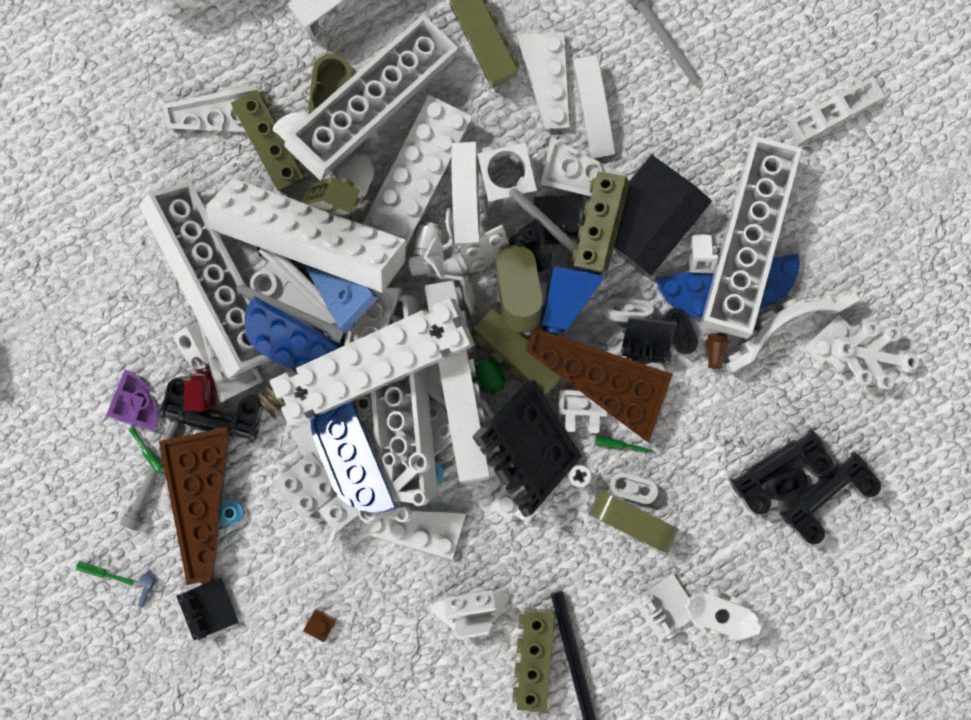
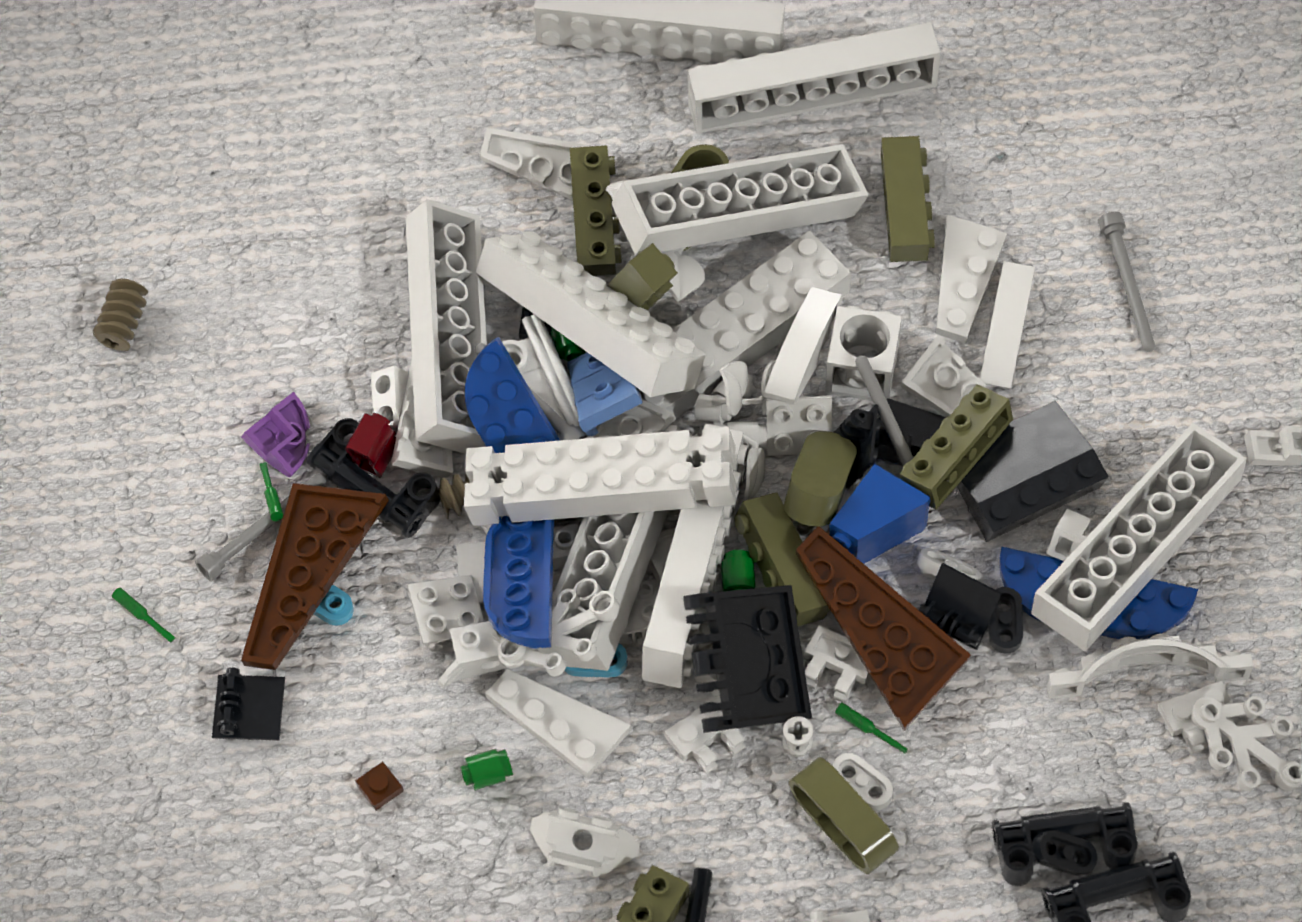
camera: 25 degrees right, 25 degrees down
(147, 581) = (192, 647): sand blue hand -> none
(385, 586) = (486, 768): none -> green brick
(716, 349) = (1042, 659): reddish brown cone -> none

